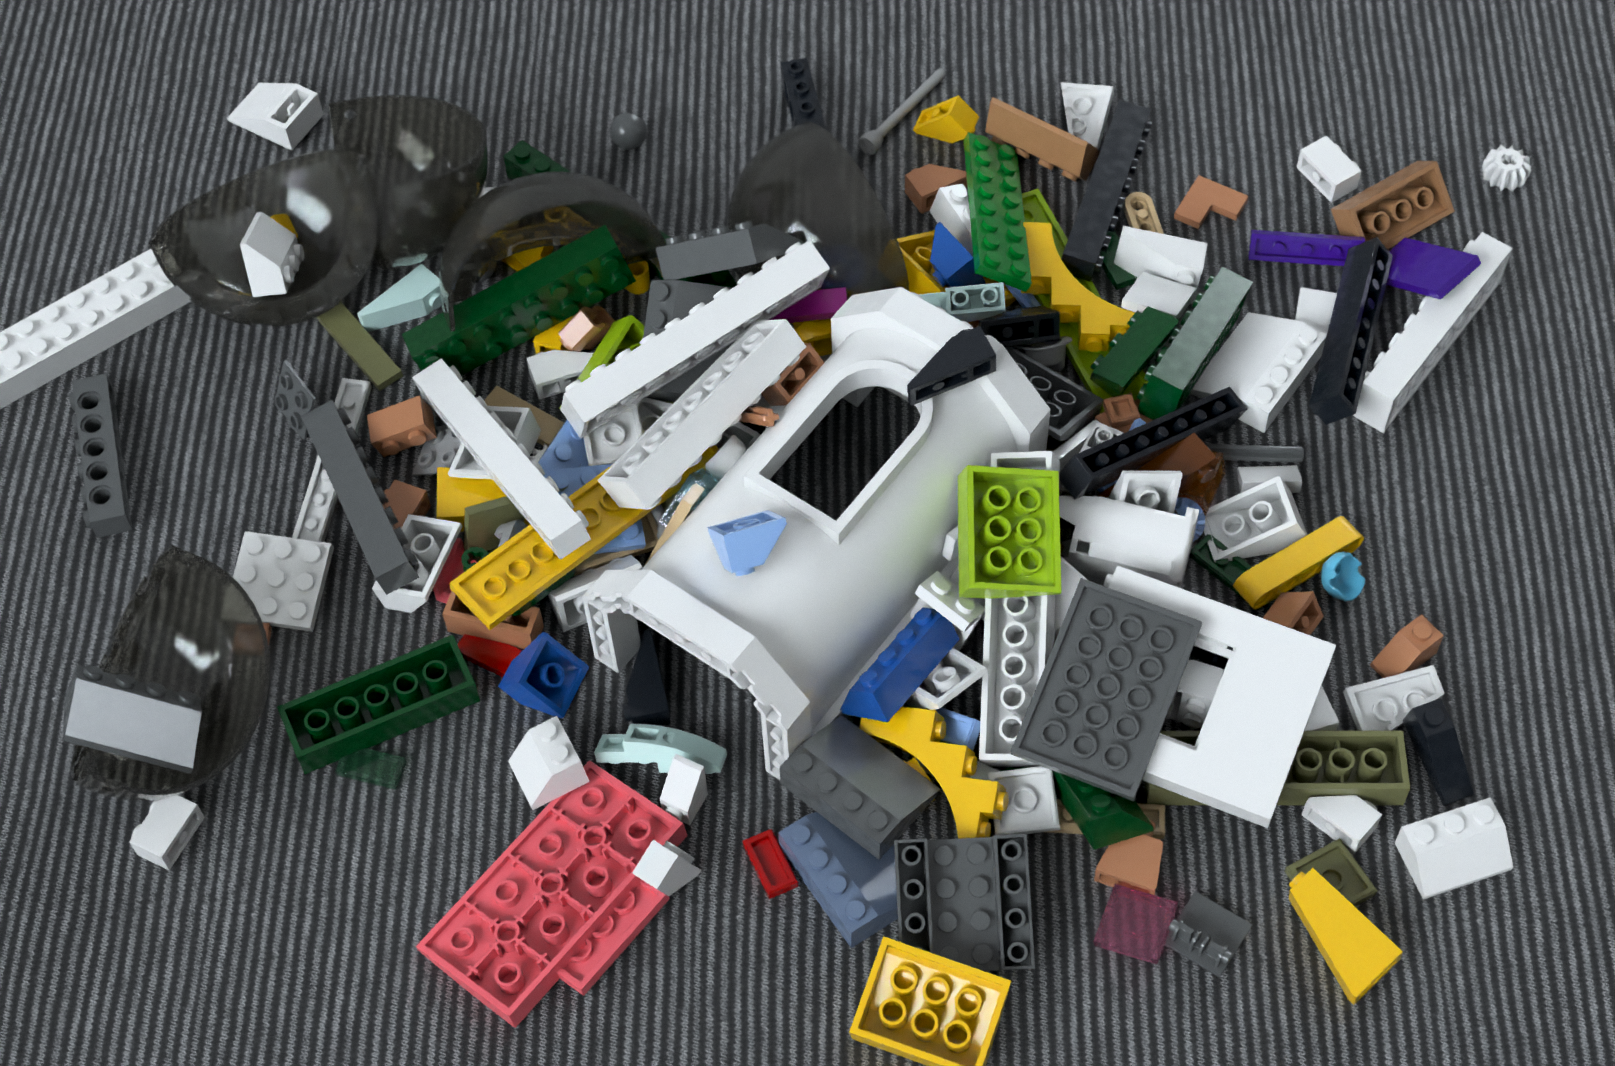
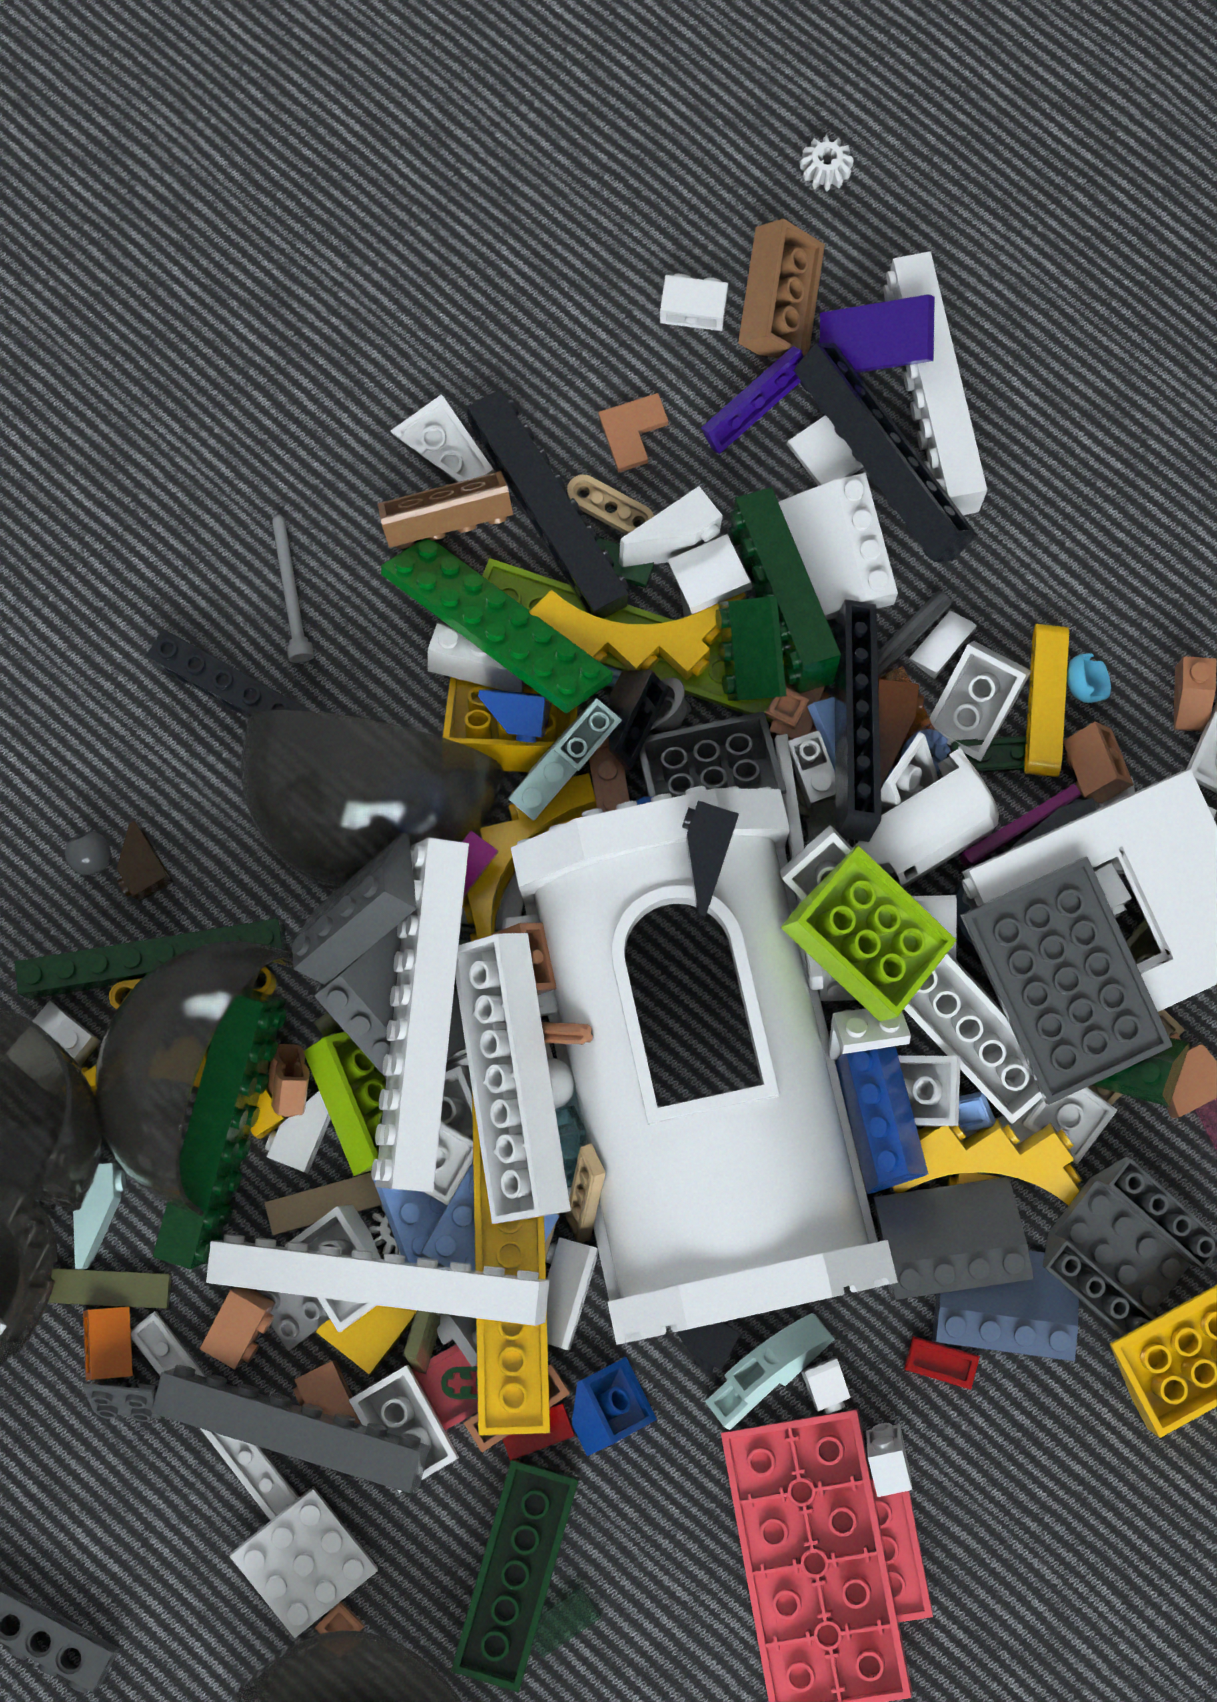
camera: 45 degrees left, 20 degrees up
(327, 367) = (107, 1343): none -> orange brick
(547, 764) = (699, 1475): white slope -> none
(648, 163) = (140, 865): none -> dark brown slope
(746, 540) = (725, 1178): light blue slope -> none
(924, 183) = (401, 642): nougat slope -> none
(947, 120) = (341, 567): yellow slope -> none

